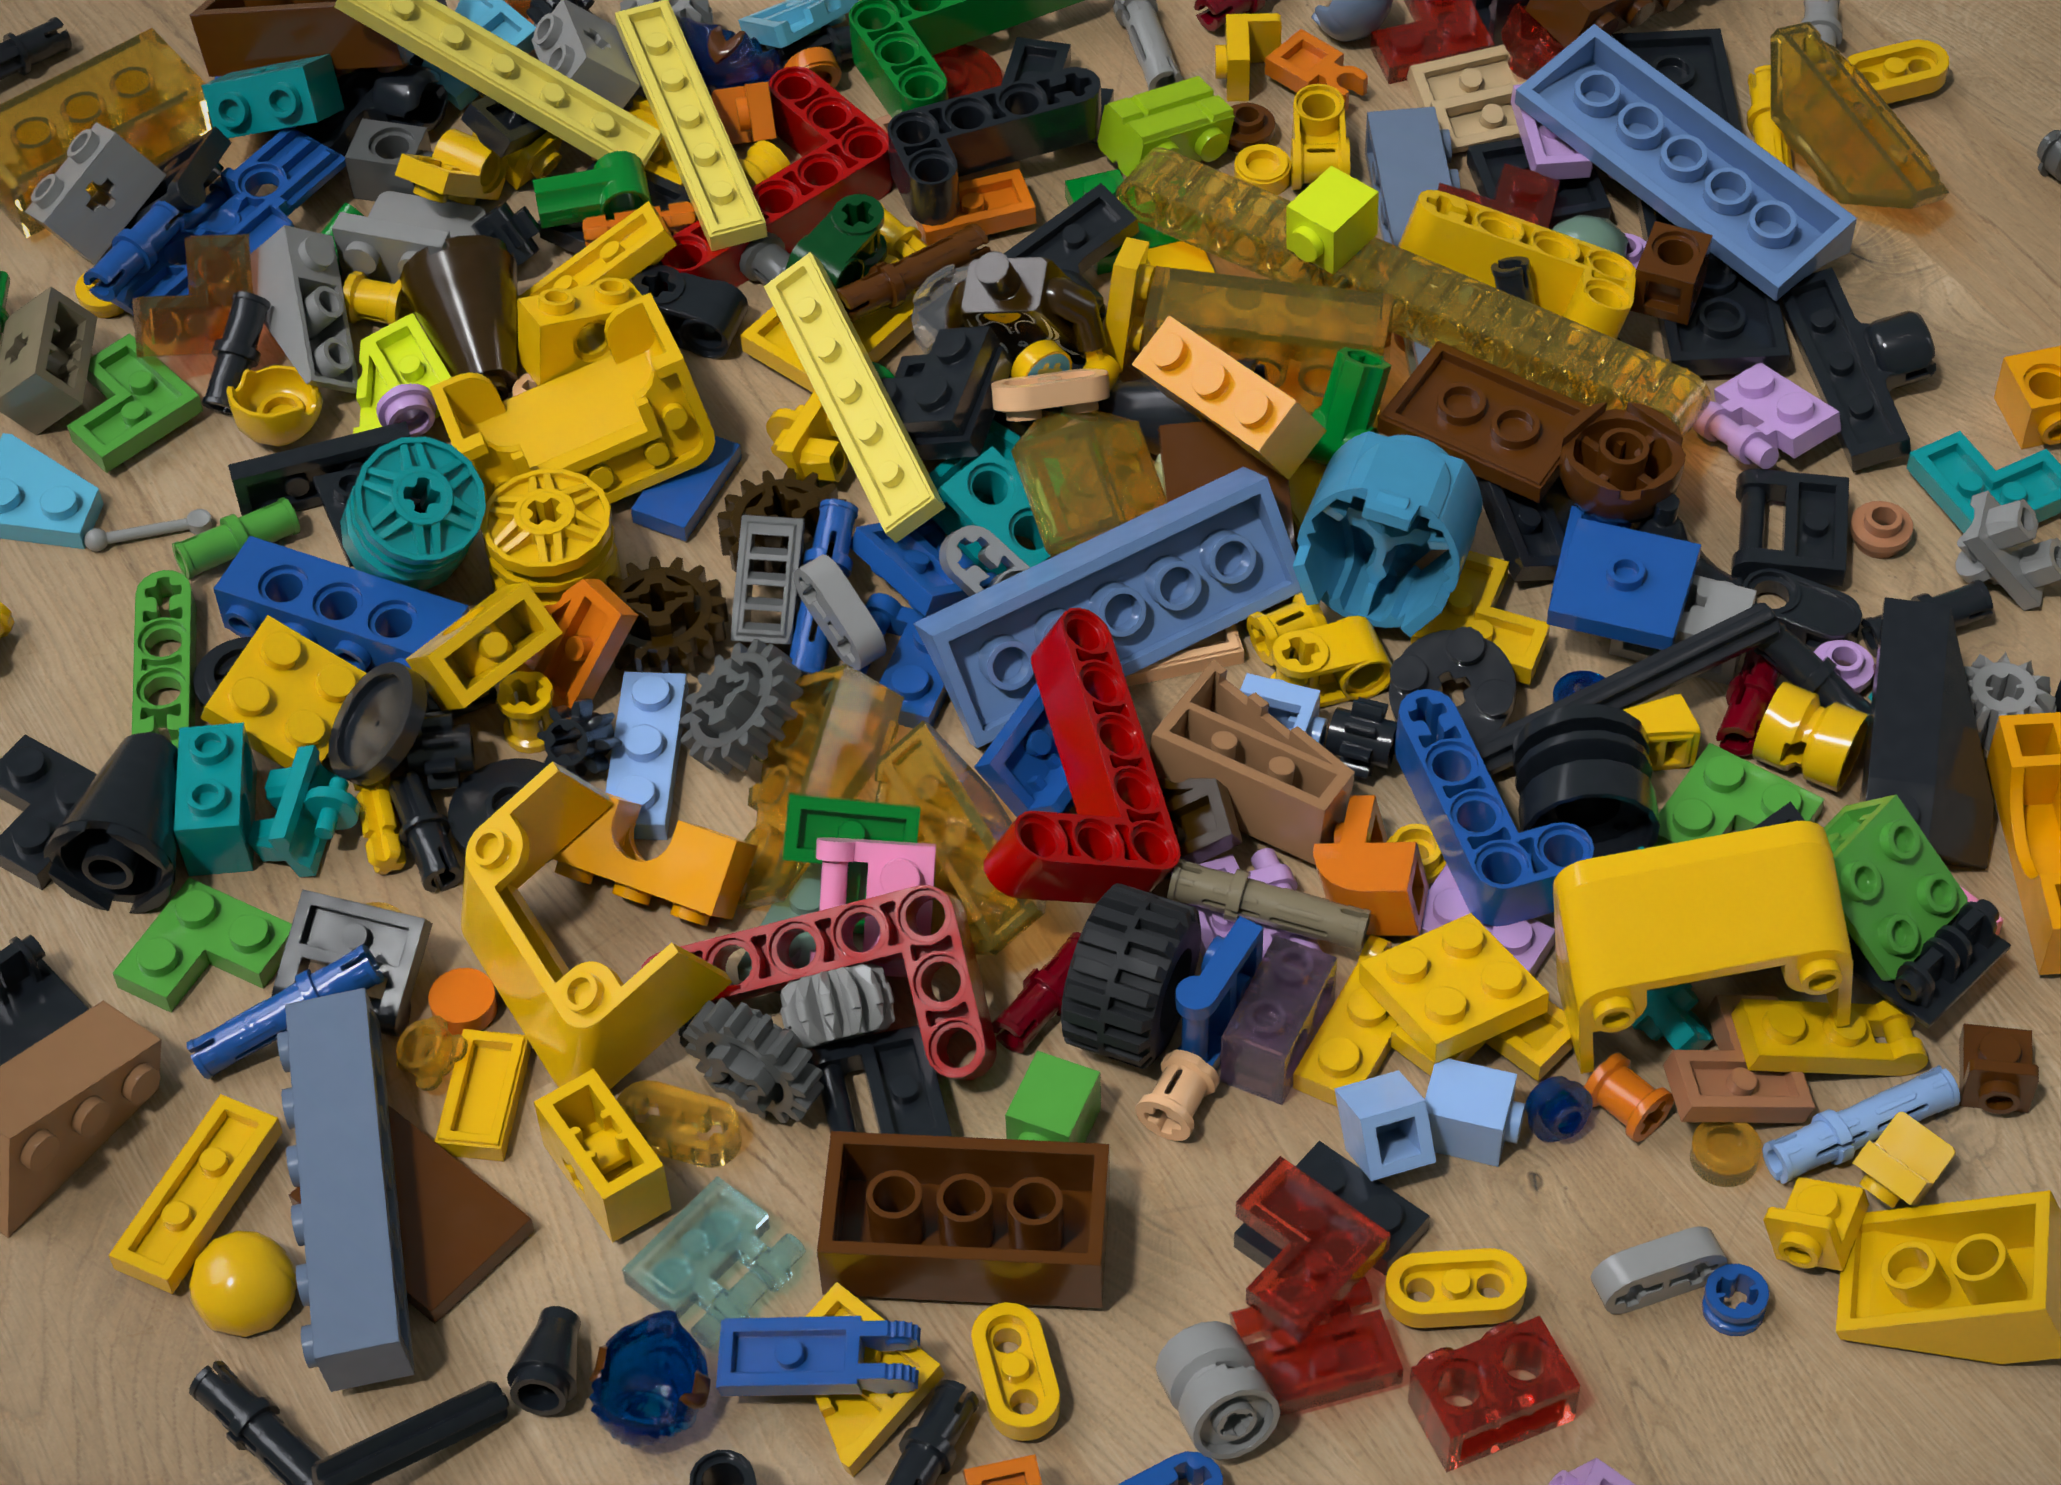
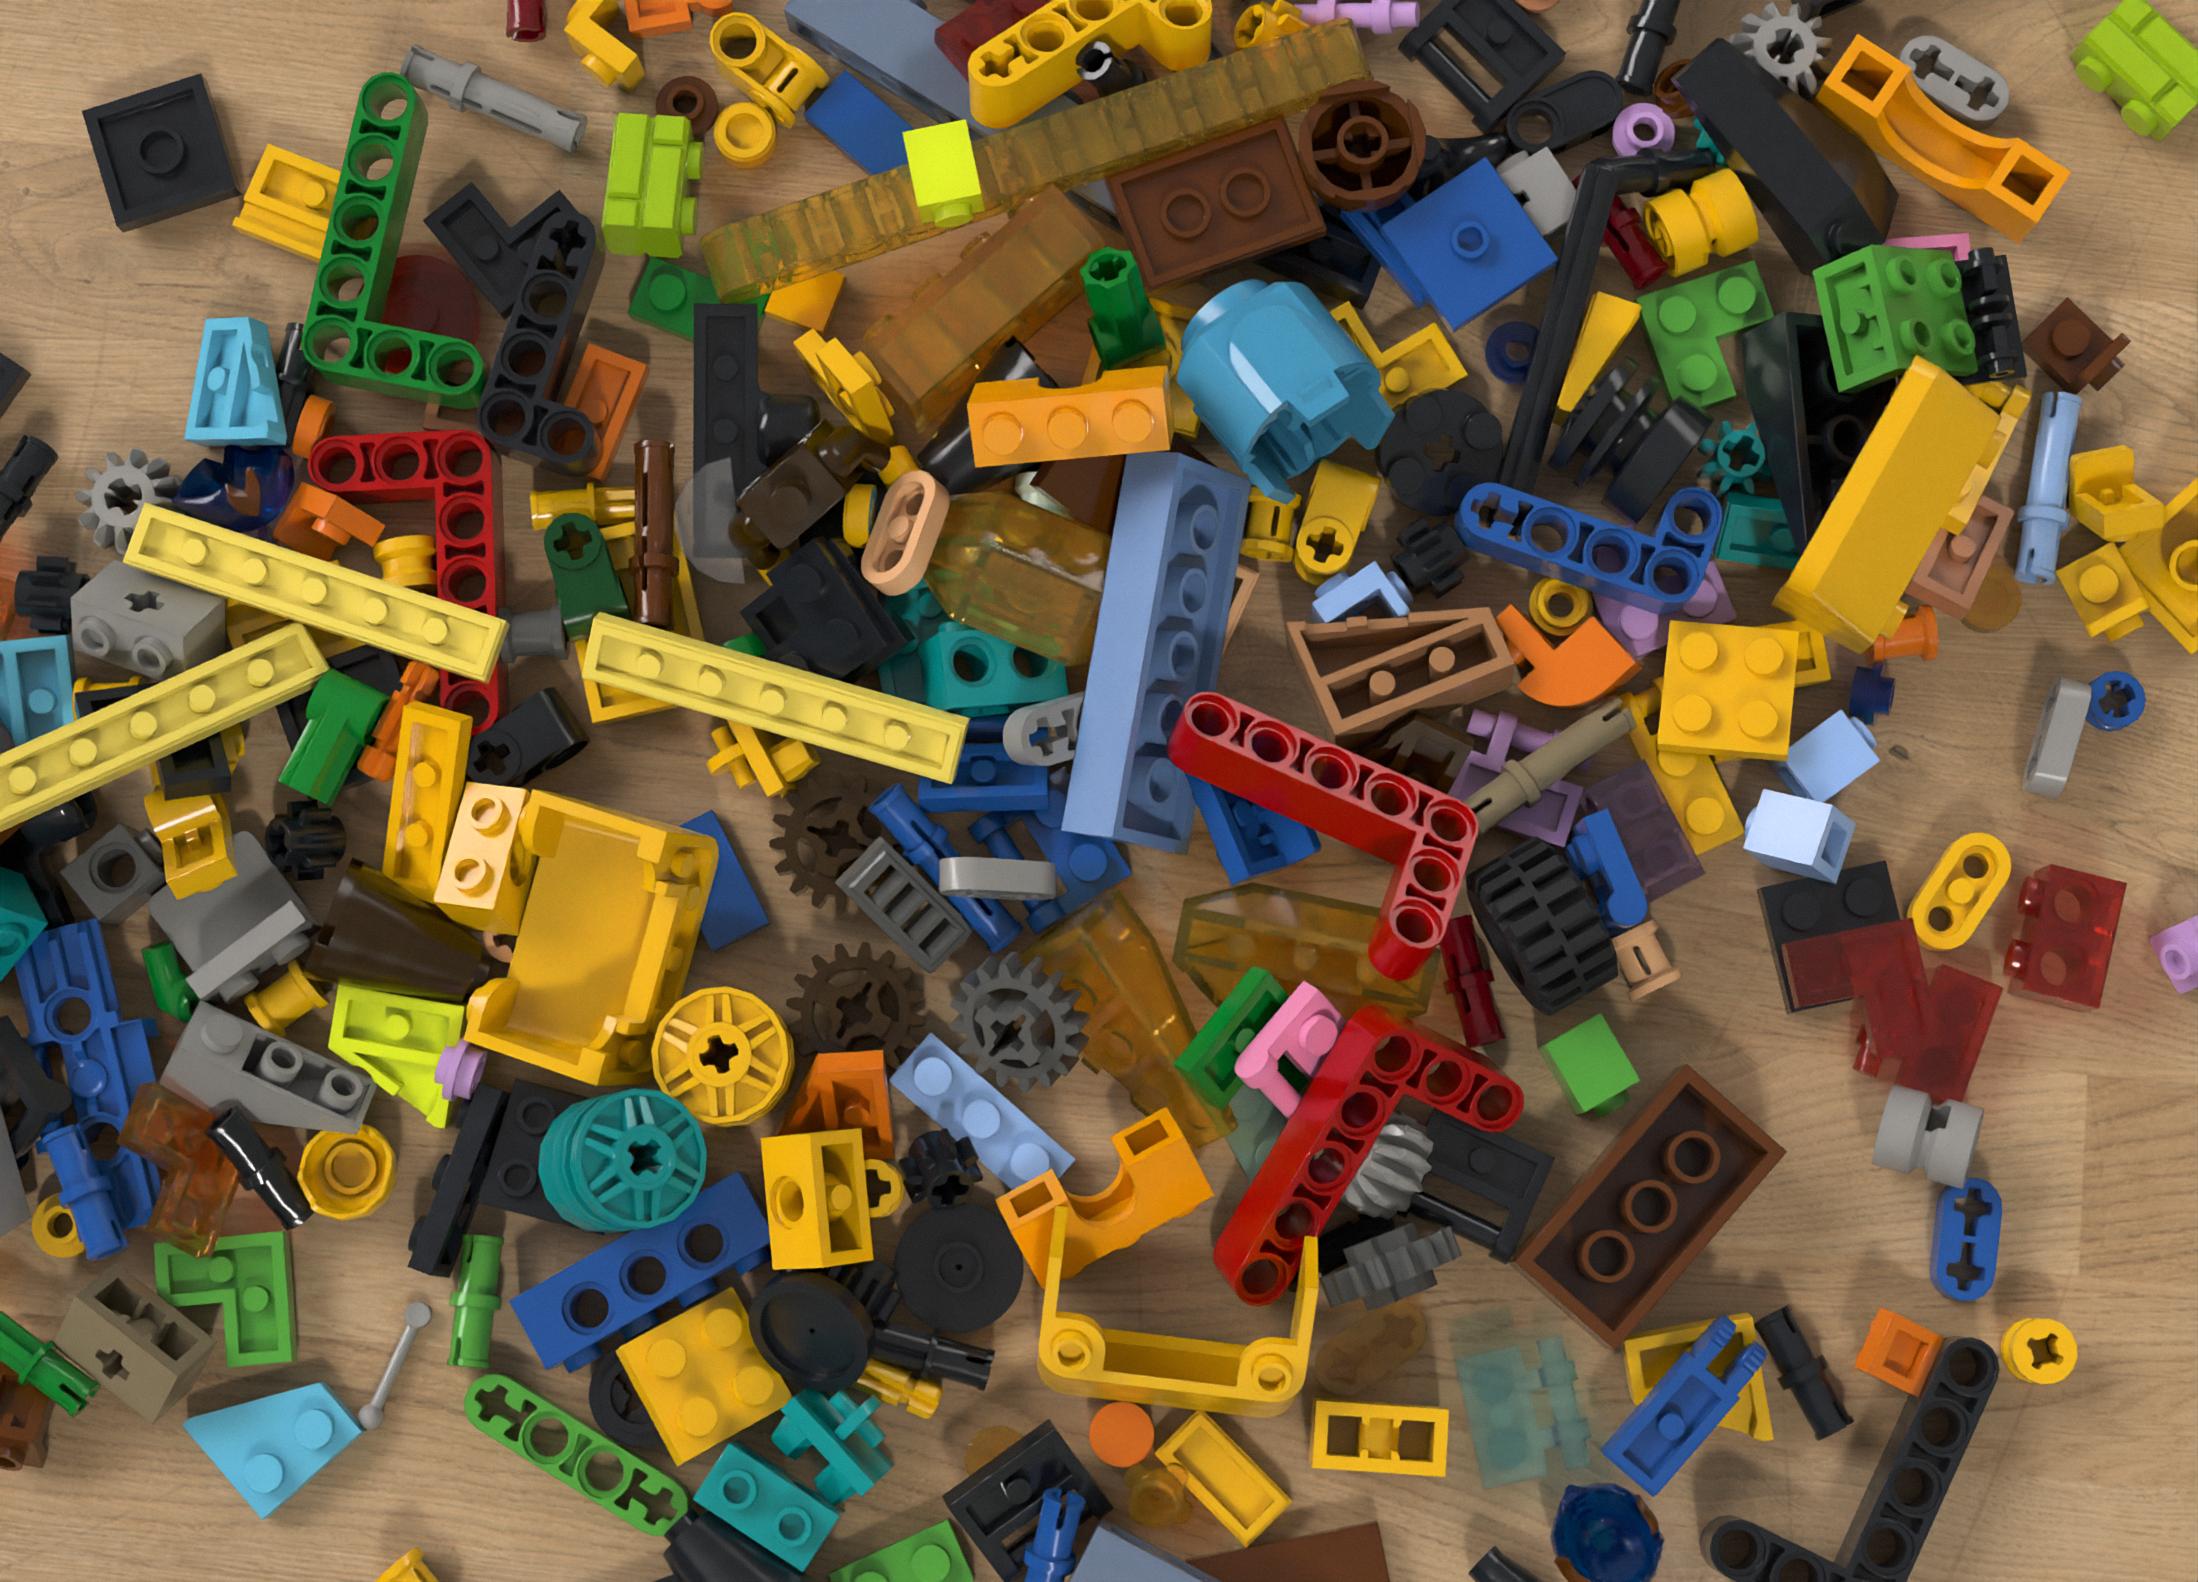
camera: 50 degrees left, 30 degrees up
(1017, 1375) = (1784, 1259): yellow plate -> none

